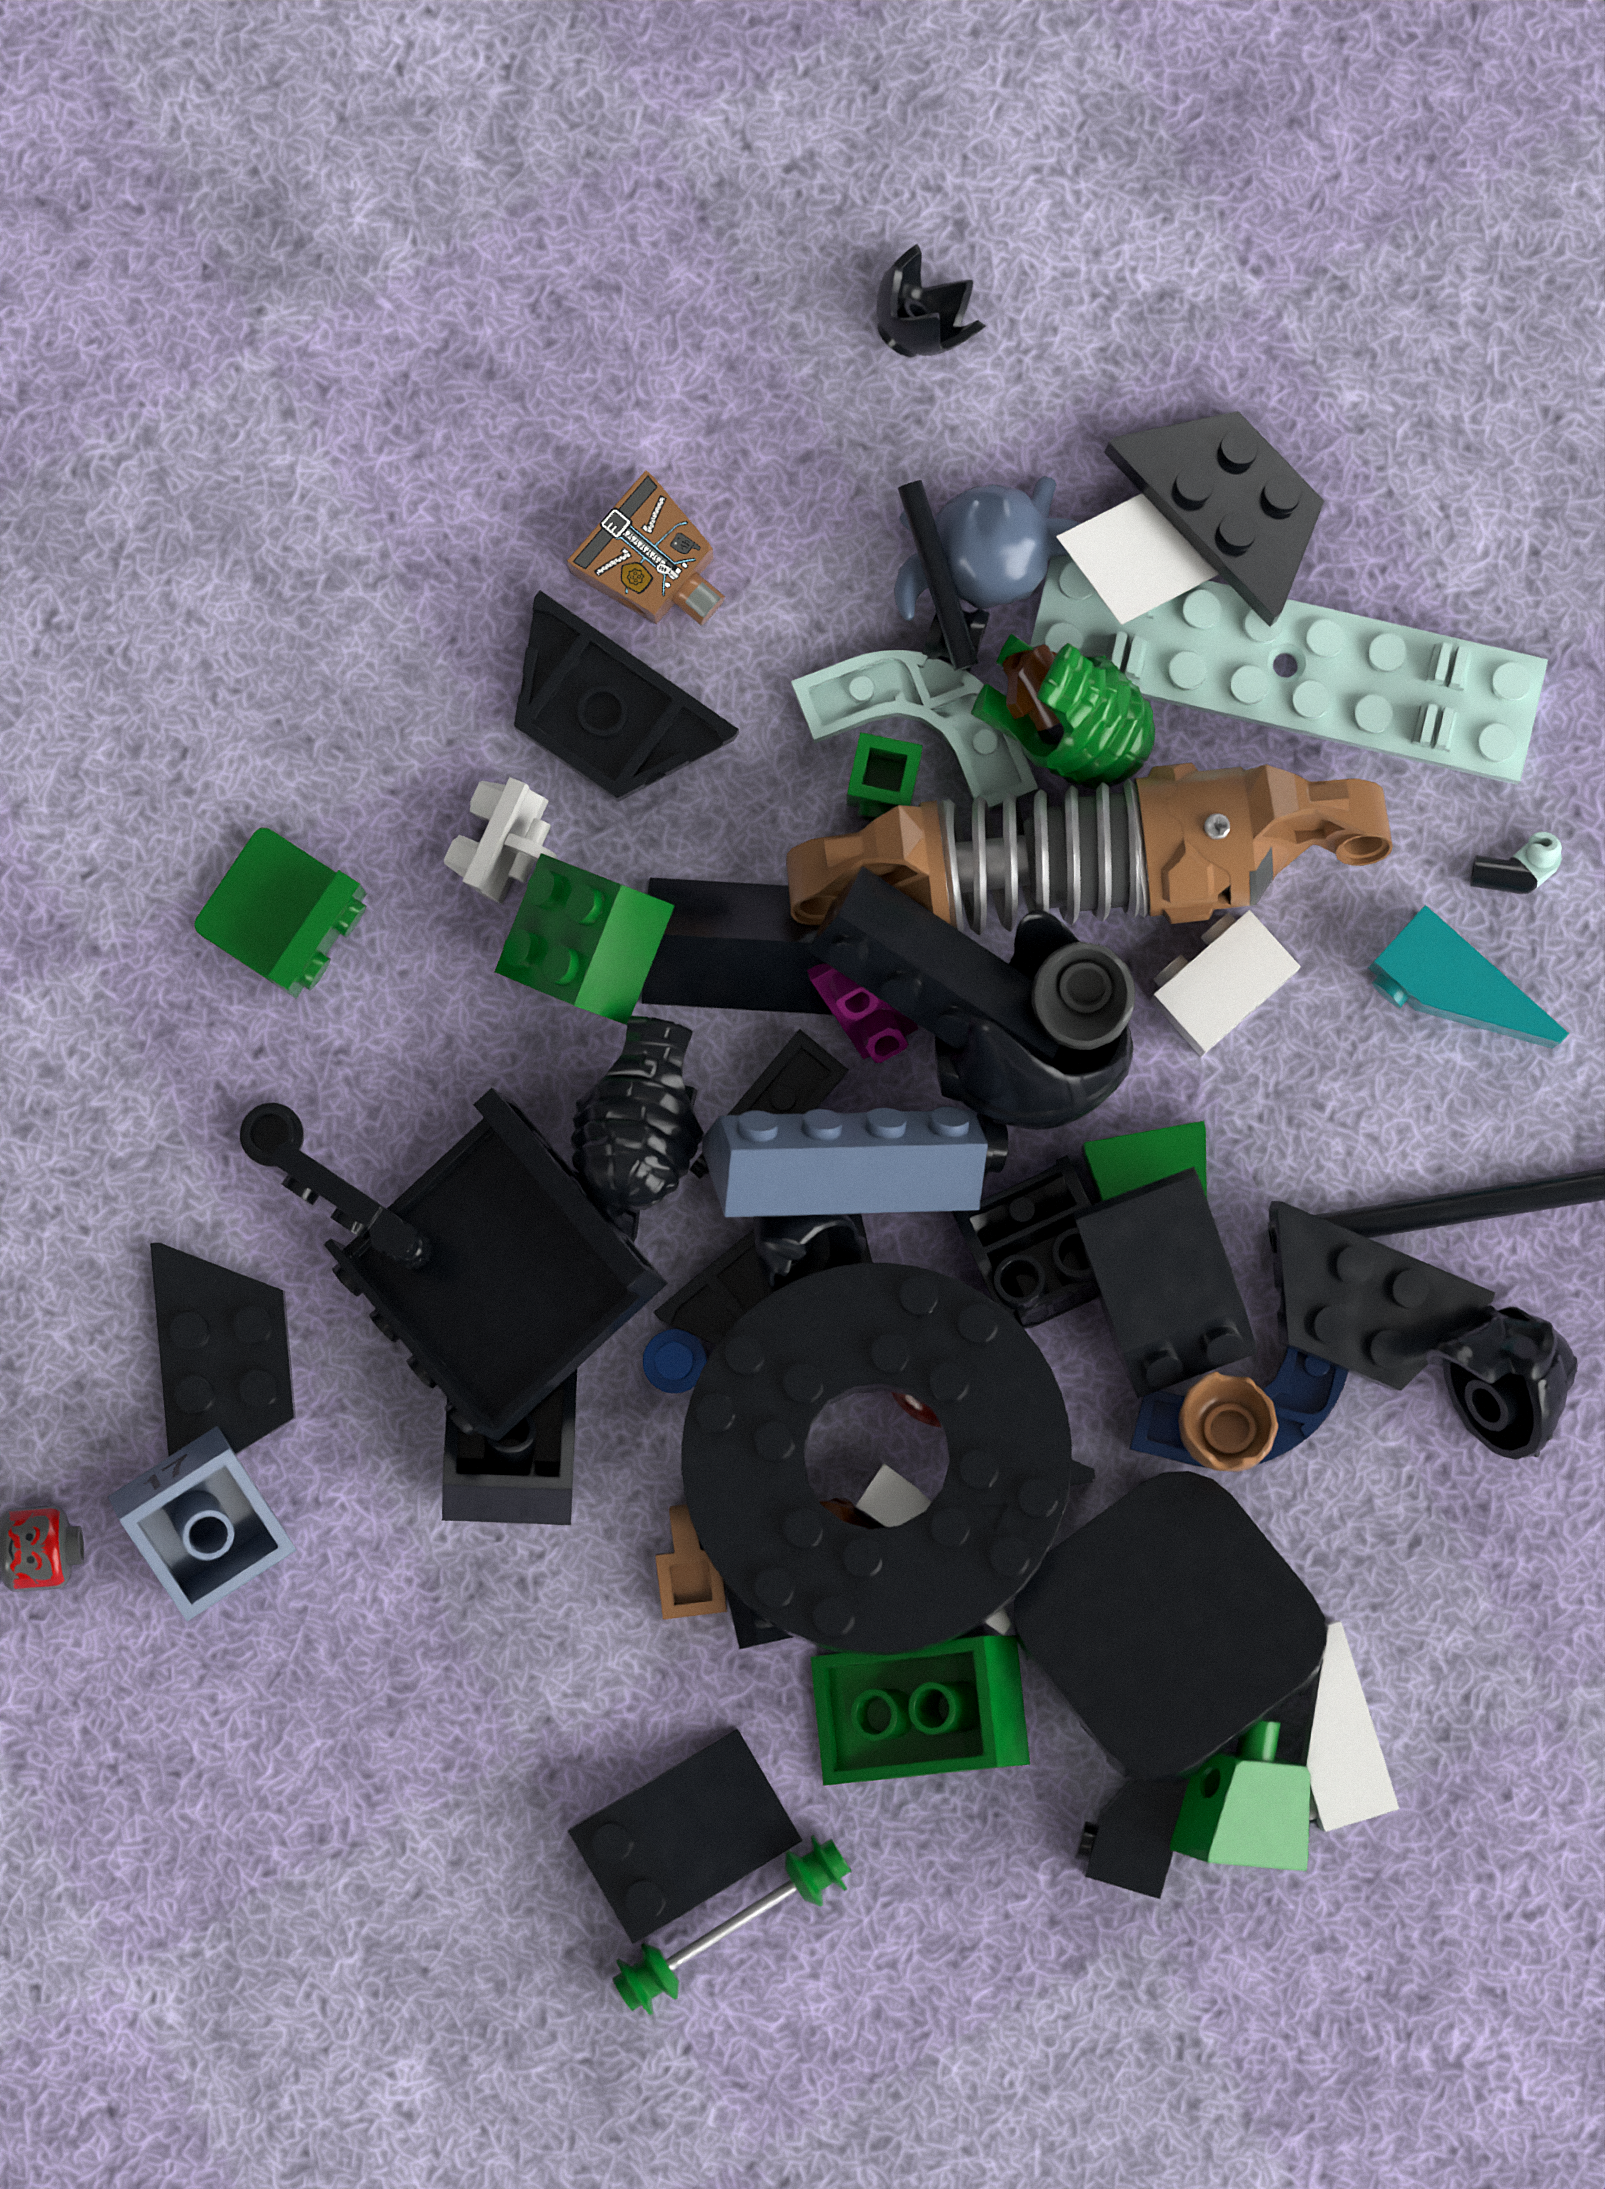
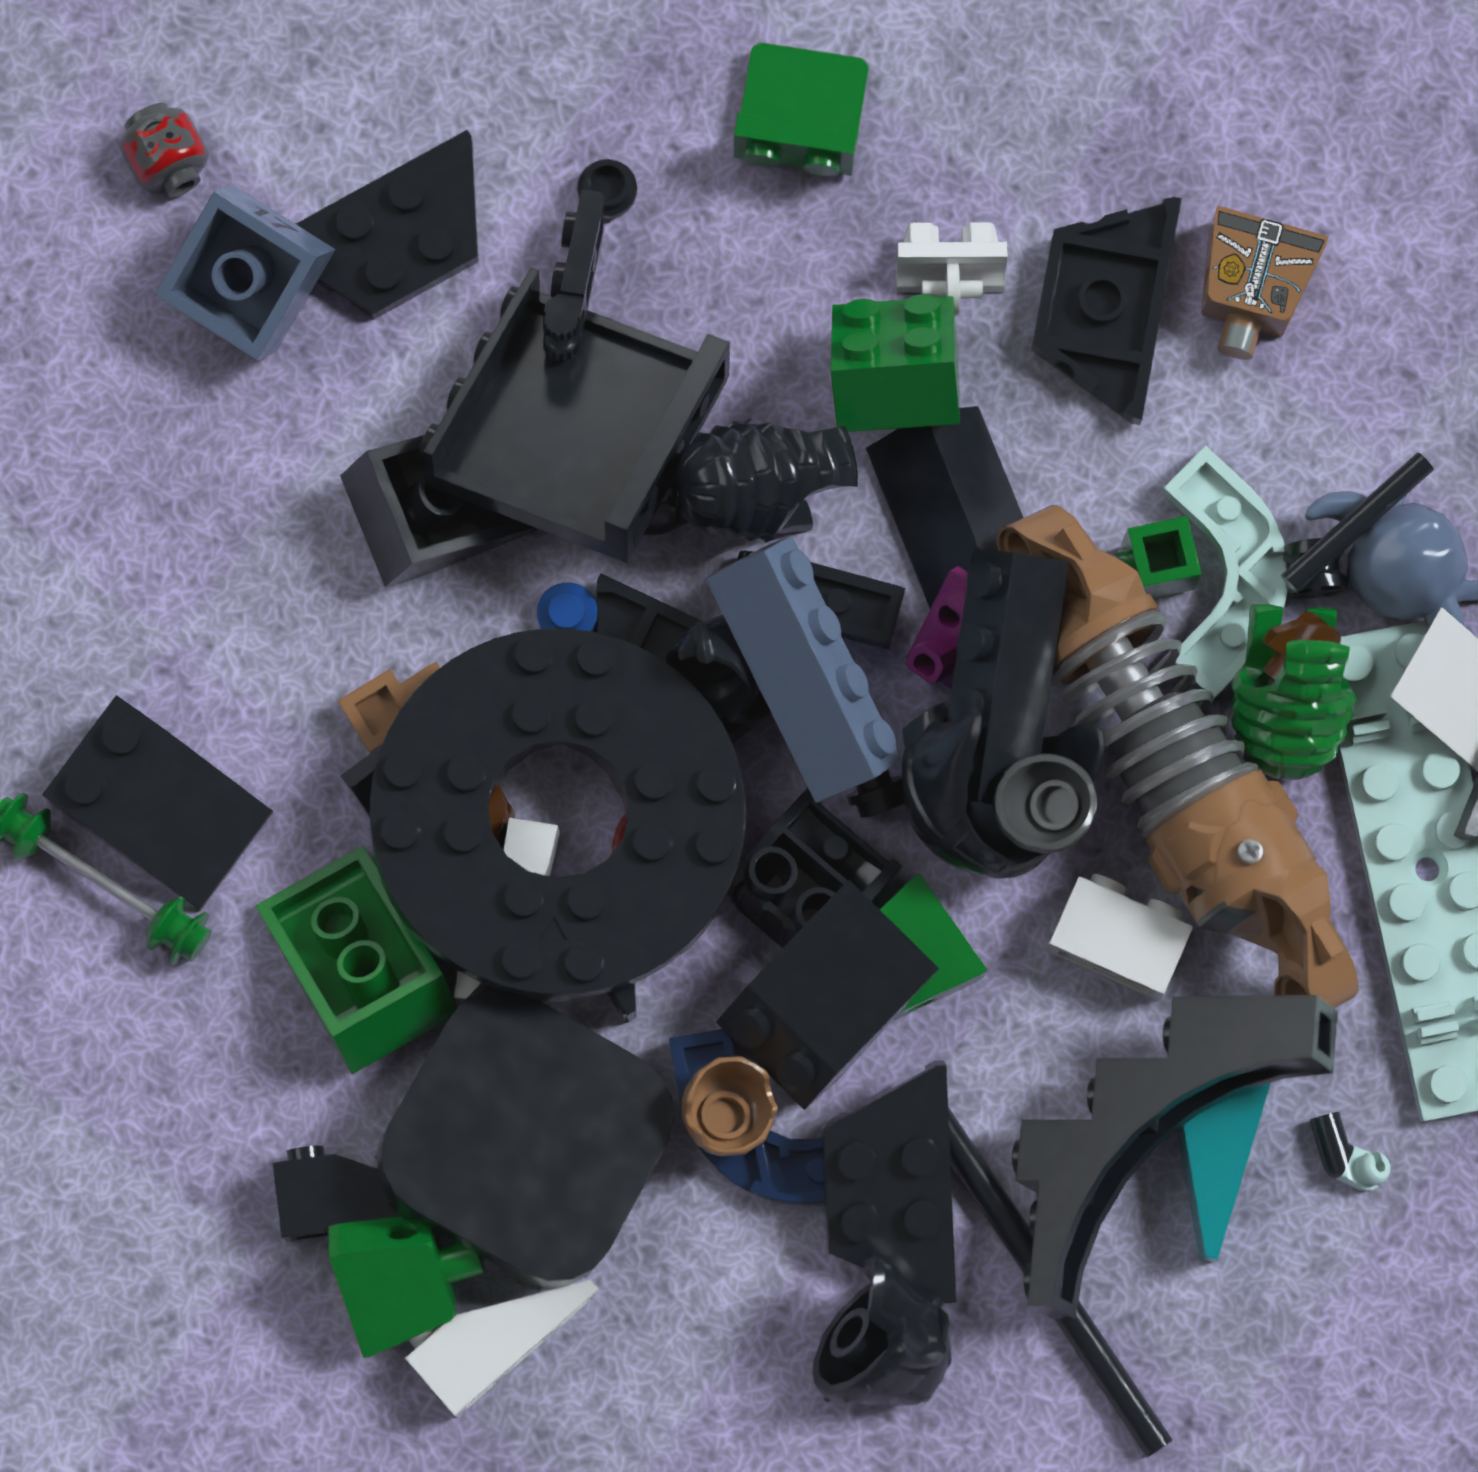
camera: 60 degrees right, 5 degrees down
(1395, 1043) = (1138, 1103): none -> black arch

